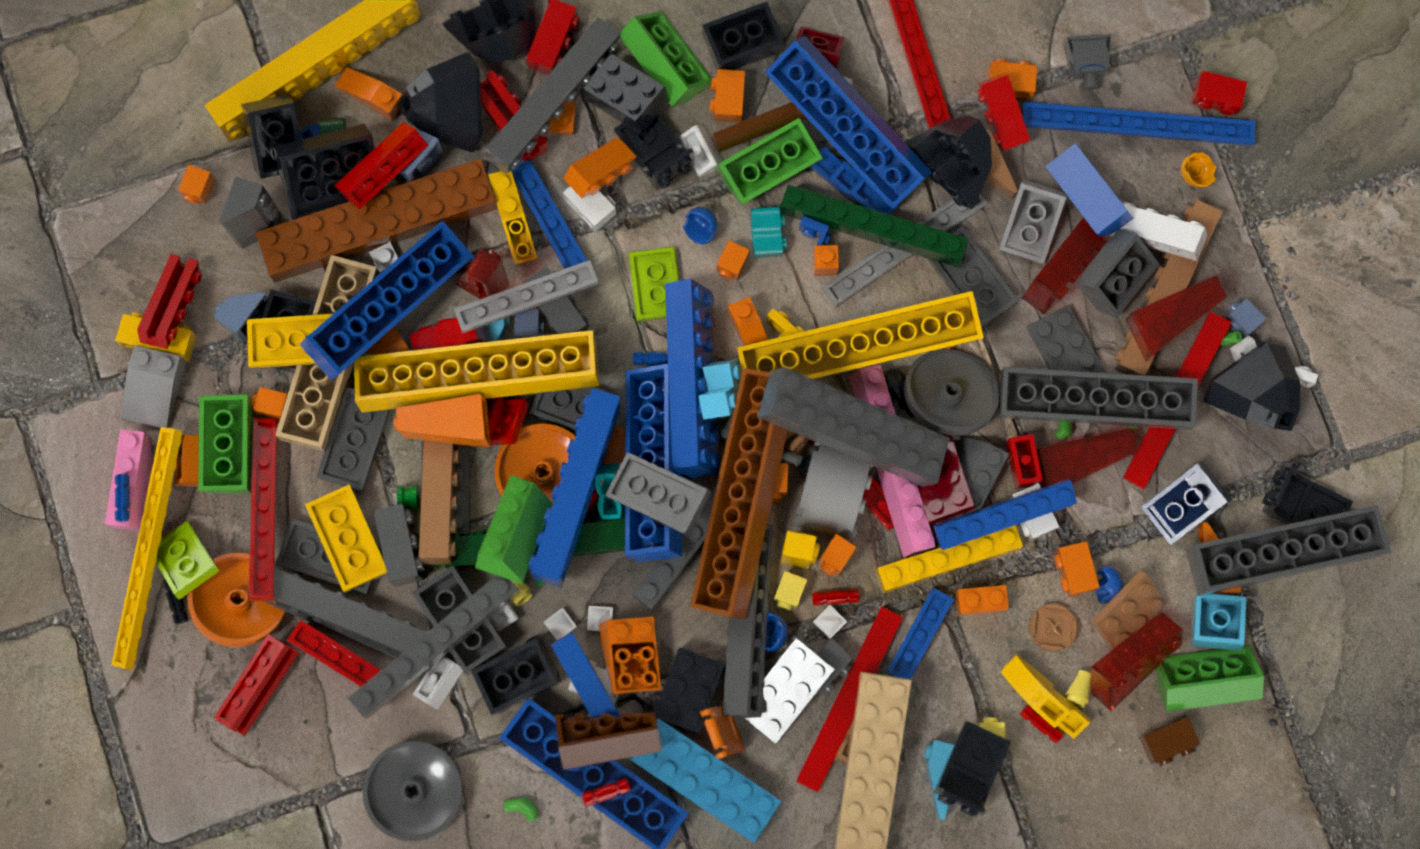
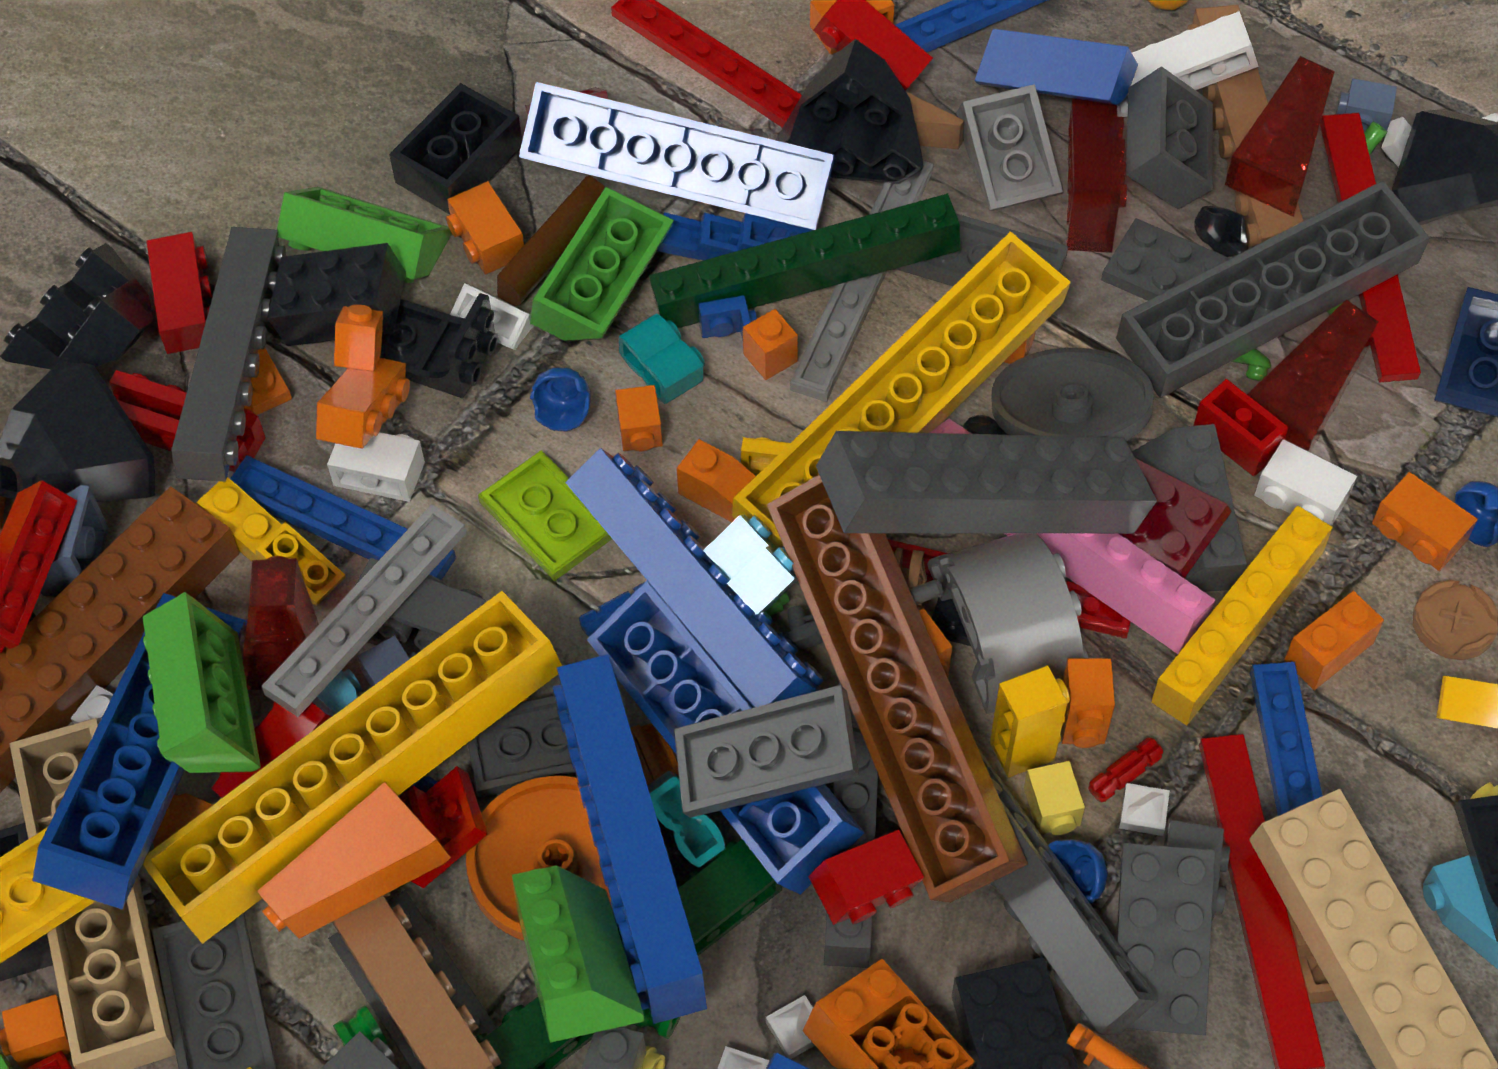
camera: 30 degrees left, 20 degrees down
(426, 290) = (199, 689): none -> bright green slope
(617, 132) = (358, 337): none -> orange brick
(667, 579) = (866, 877): none -> red brick
(1005, 514) = (1275, 499): blue plate -> none
(1105, 342) = (1222, 230): none -> black piece

